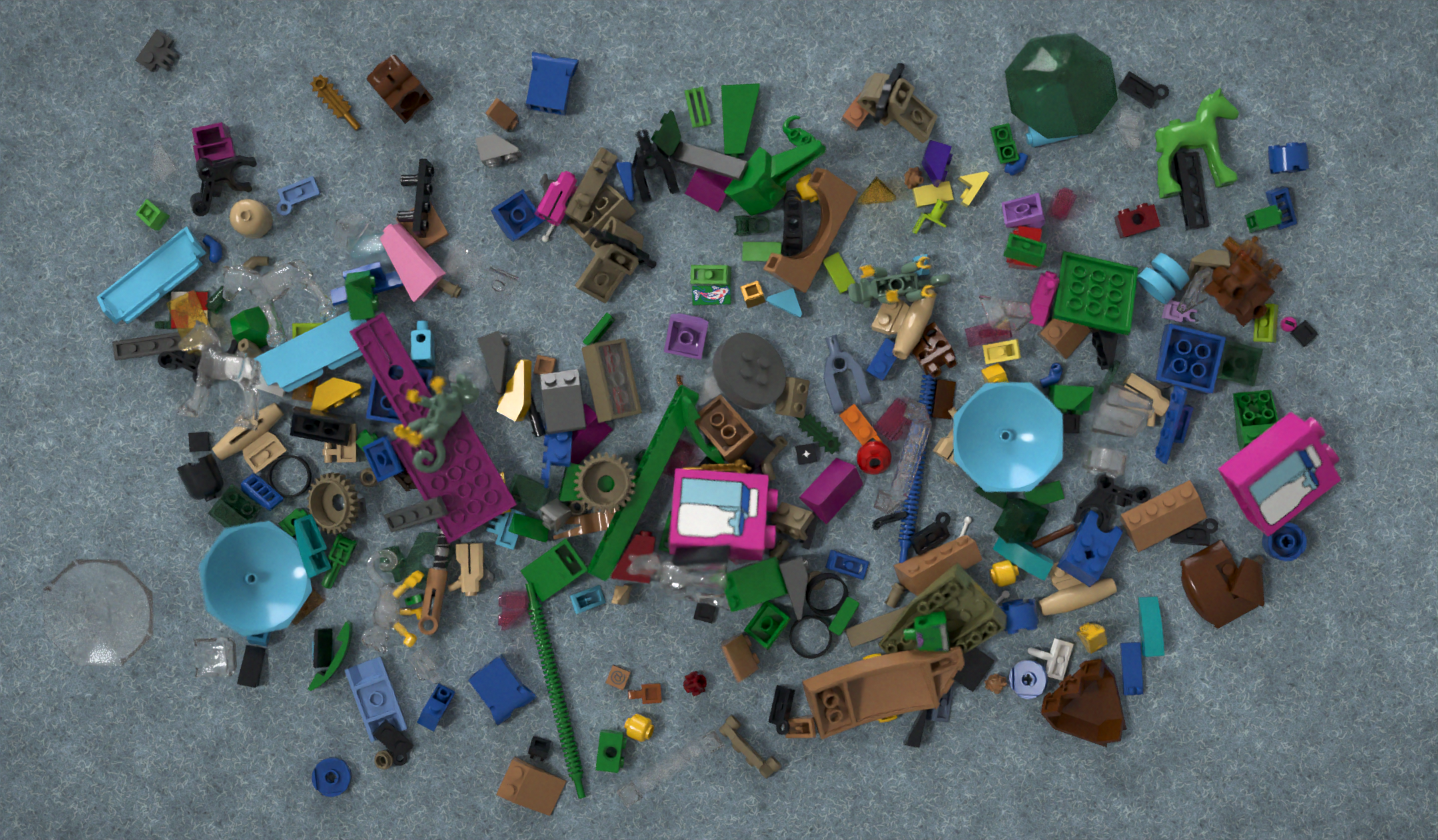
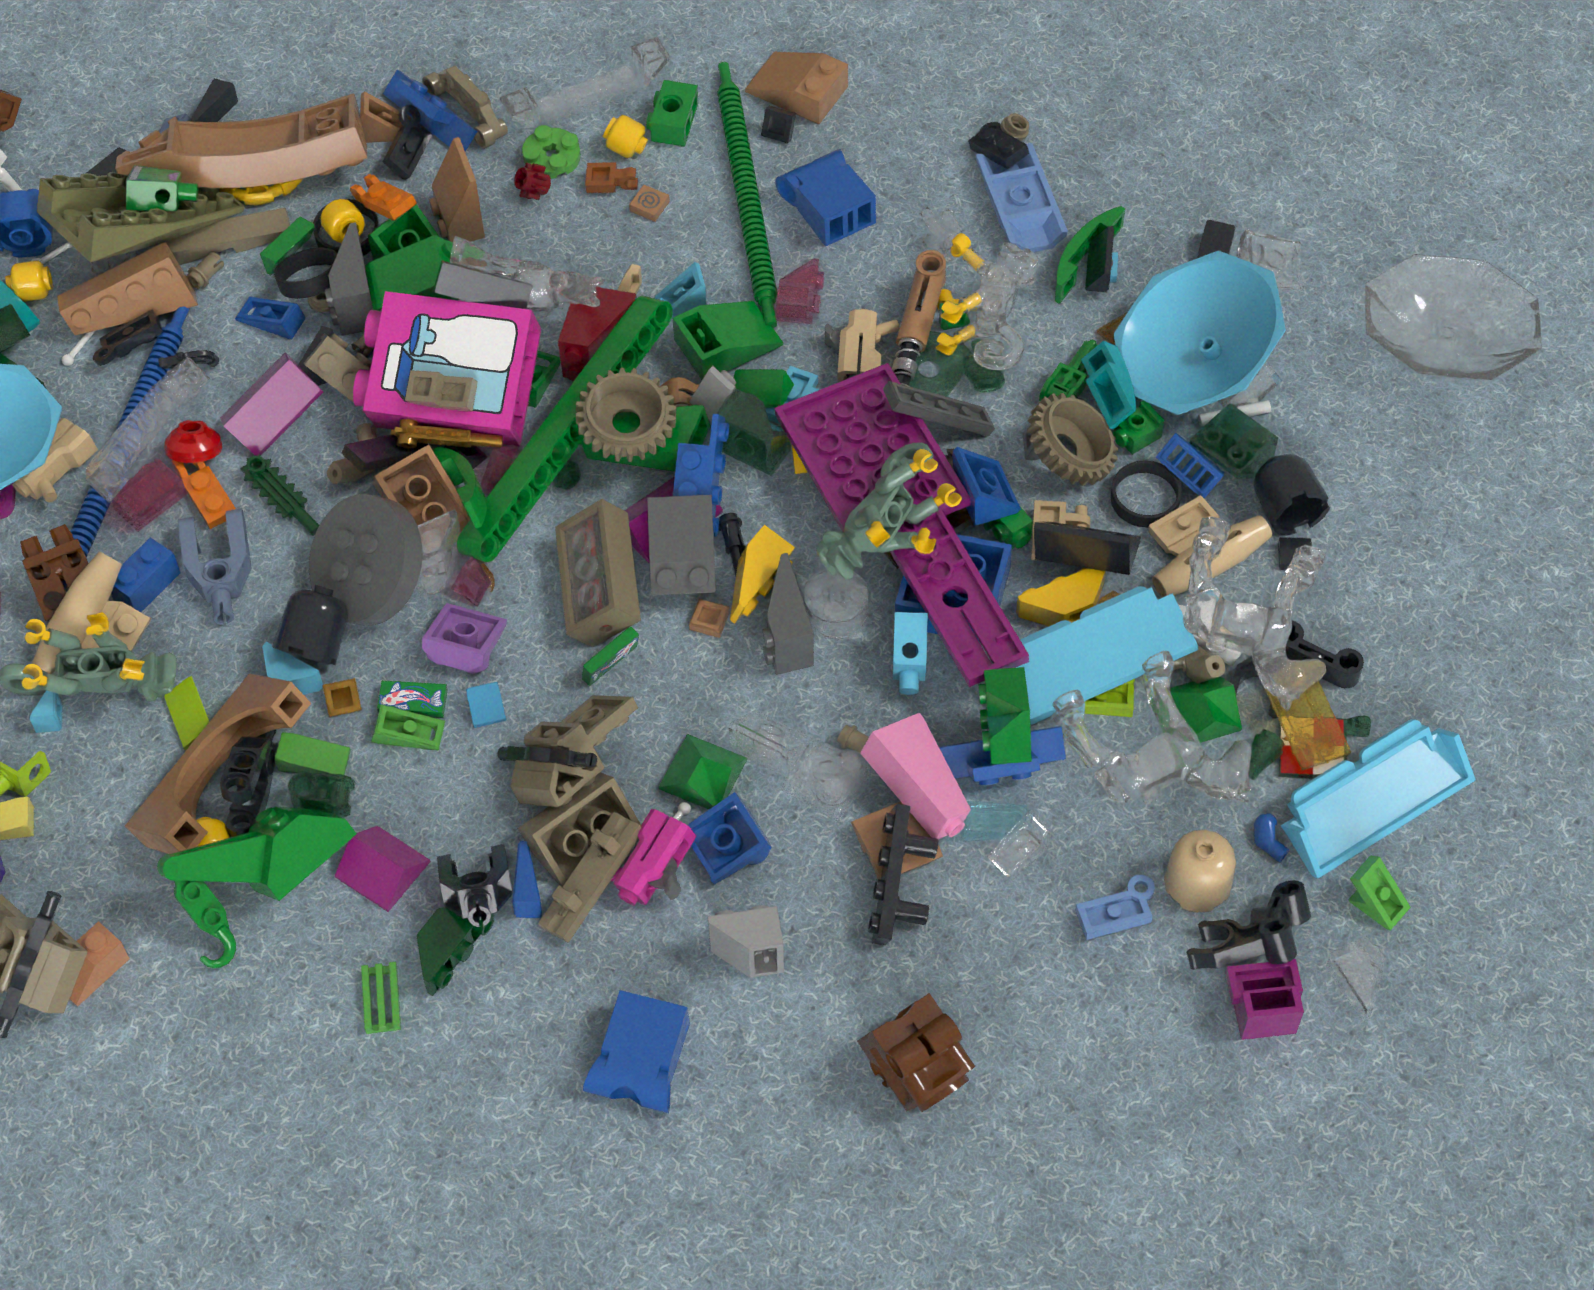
camera: 170 degrees left, 30 degrees down
(146, 346) = (1385, 698): dark grey tile -> none
(157, 52) = (1373, 1177): dark grey hinge -> none
(256, 261) = (1197, 811): dark tan arm -> none
(323, 769) = (1094, 127): blue plate -> none
(334, 101) = (1042, 1060): pearl gold piece -> none
(364, 481) = (1019, 476): dark tan plate -> none
(435, 707) = (930, 180): blue slope -> none
(502, 115) = (735, 1002): medium nougat slope -> none
(537, 262) = (702, 772): none -> green slope
(667, 293) = (485, 704): none -> dark azure slope
(678, 720) = (556, 139): none -> bright green plate
(688, 374) = (471, 582): none -> clear pink slope
(710, 161) = (369, 888): dark grey tile -> none
(719, 486) = (441, 391): none -> dark tan slope
(737, 114) = (310, 973): green slope -> none
(772, 738) = (432, 109): none -> blue bracket
(773, 324) = (312, 625): none -> black cylinder
(785, 649) = (383, 197): none -> orange hinge
(793, 398) = (299, 533): dark tan bracket -> none
(806, 454) = (301, 463): black tile -> none
(810, 632) = (338, 216): none -> yellow head
(876, 193) = (97, 824): clear yellow slope -> none
(913, 178) = (24, 846): medium nougat plant -> none
(943, 399) = (62, 512): reddish brown slope -> none
(995, 683) = (81, 153): medium nougat plant -> none
(1021, 687) = (22, 163): plate -> none

